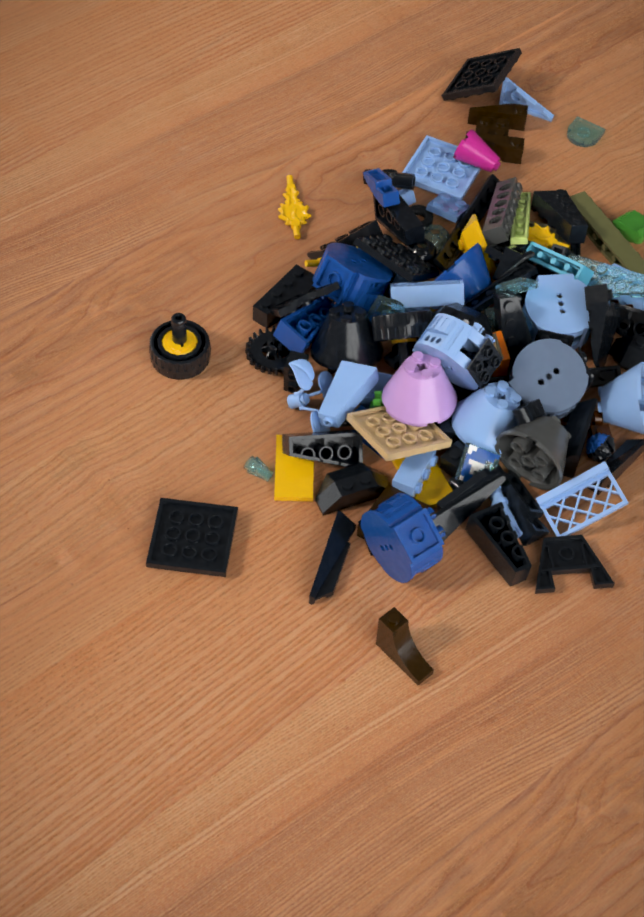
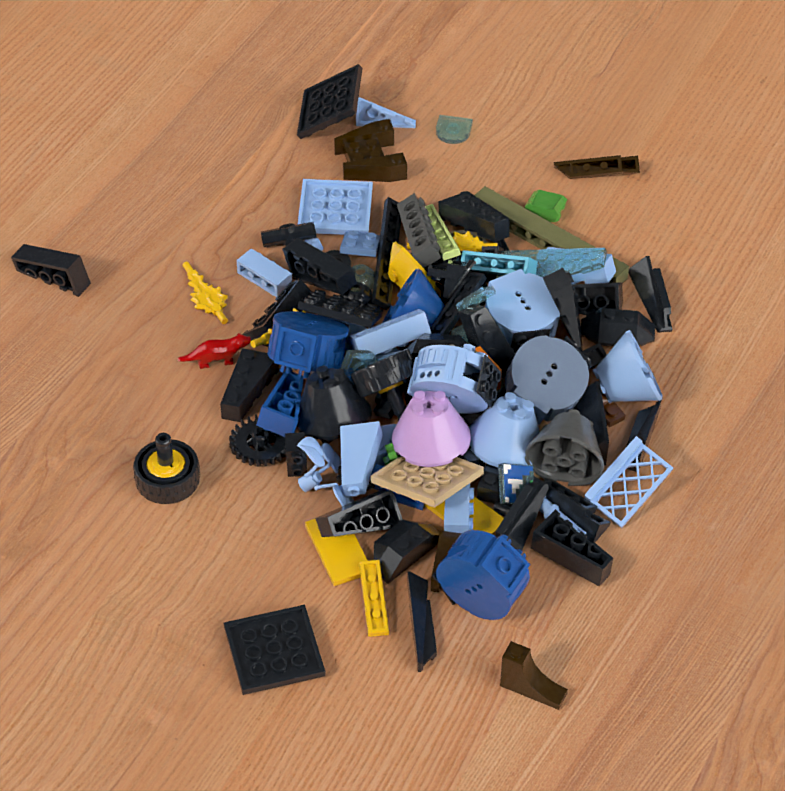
camera: 20 degrees left, 5 degrees down
(175, 144) = (52, 267): none -> black wedge
(258, 468) = (303, 560): clear light blue cone -> none
(275, 259) = (217, 350): none -> red animal
(301, 523) = (373, 598): none -> yellow tile
(302, 299) = (263, 387): black wing -> none
(351, 204) = (263, 272): none -> light blue brick
(382, 187) = (293, 244): blue slope -> none
(477, 153) = (365, 181): dark pink cone -> none
(528, 411) = (546, 413): black leg -> none
(569, 556) = (639, 538): black wing -> none
(600, 447) = (619, 426): piece -> none

